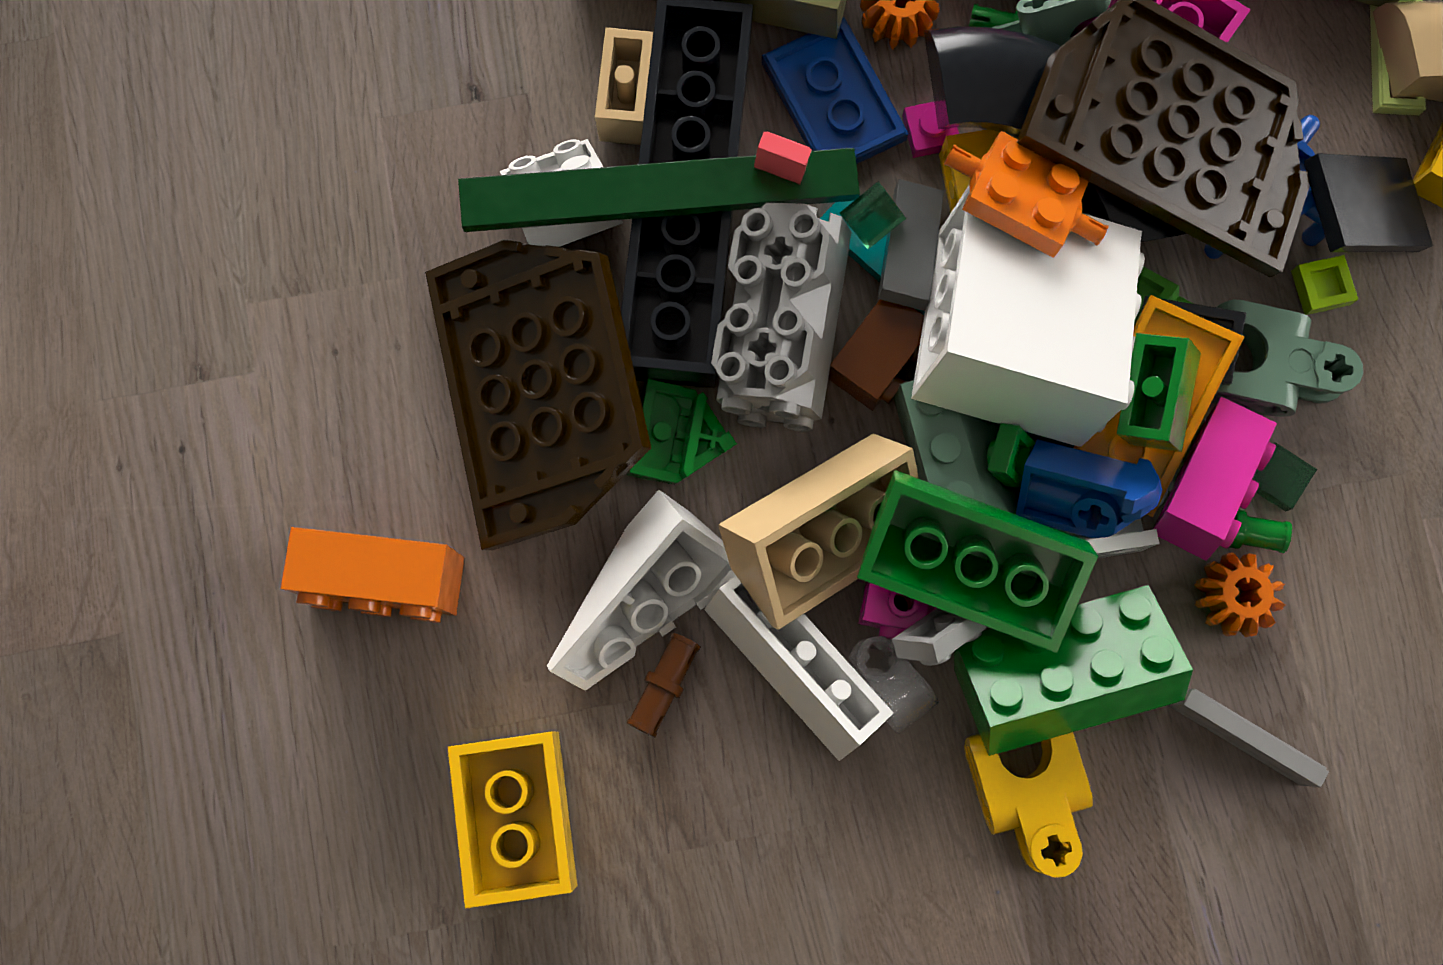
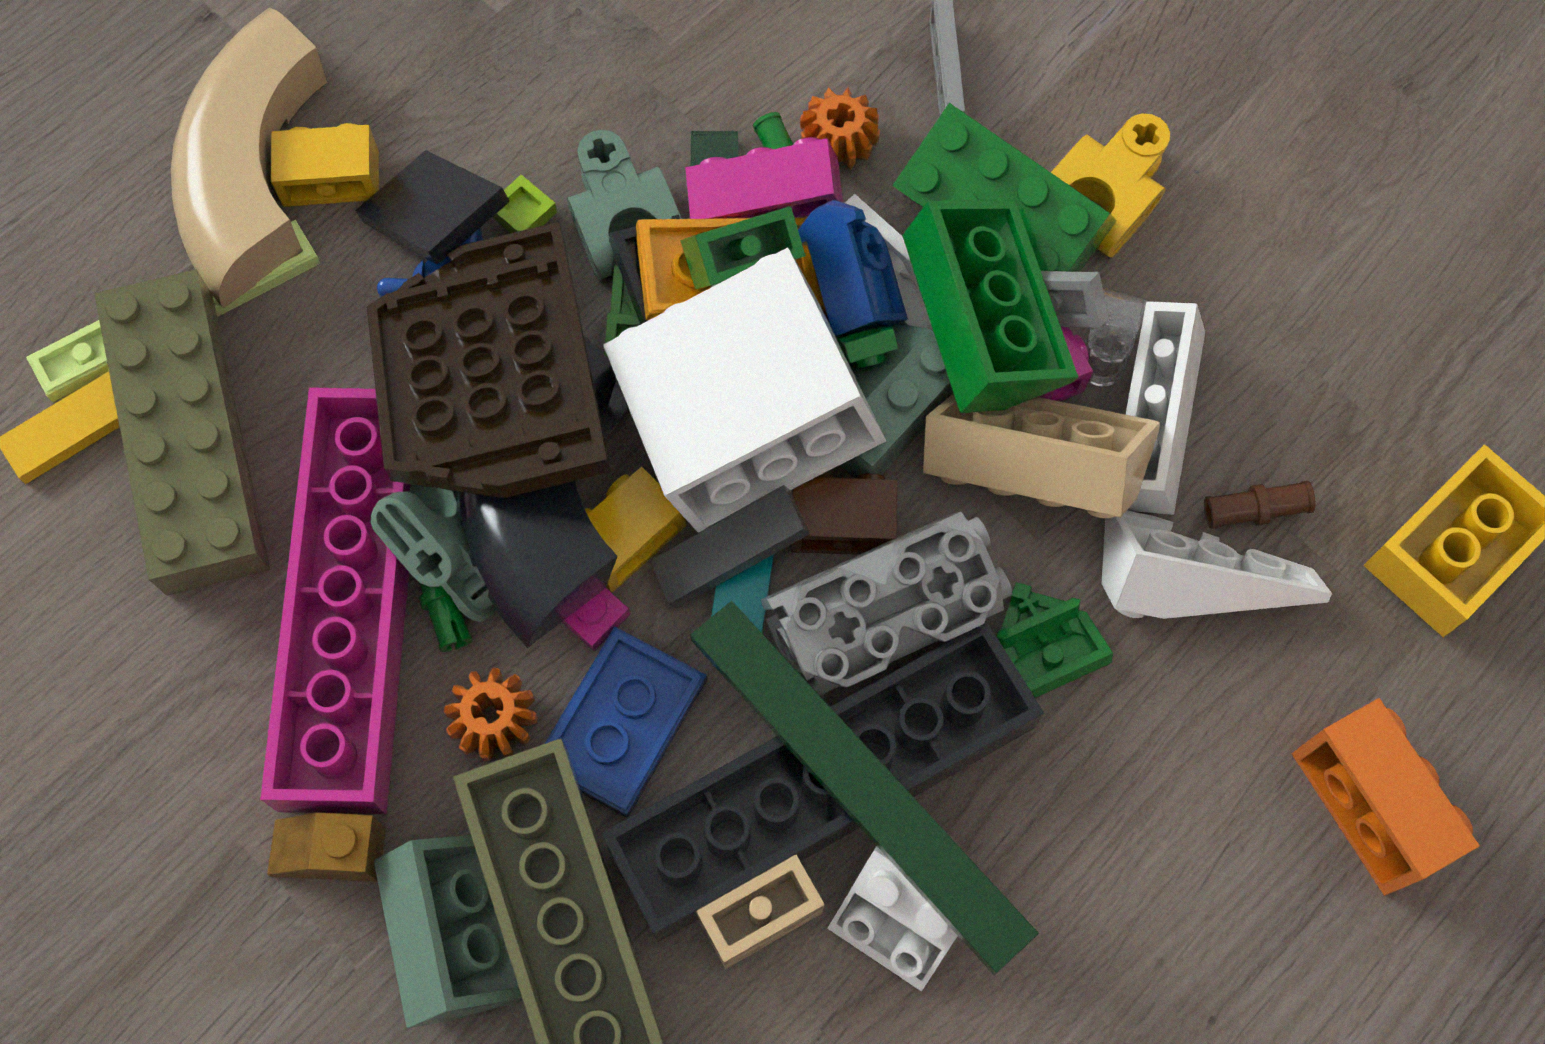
camera: 125 degrees left, 10 degrees down
(536, 384) = (1108, 783): dark brown plate -> none
(782, 157) = (757, 676): coral tile -> none
(873, 215) = (736, 584): clear green tile -> none
(1026, 195) = (652, 440): orange plate -> none

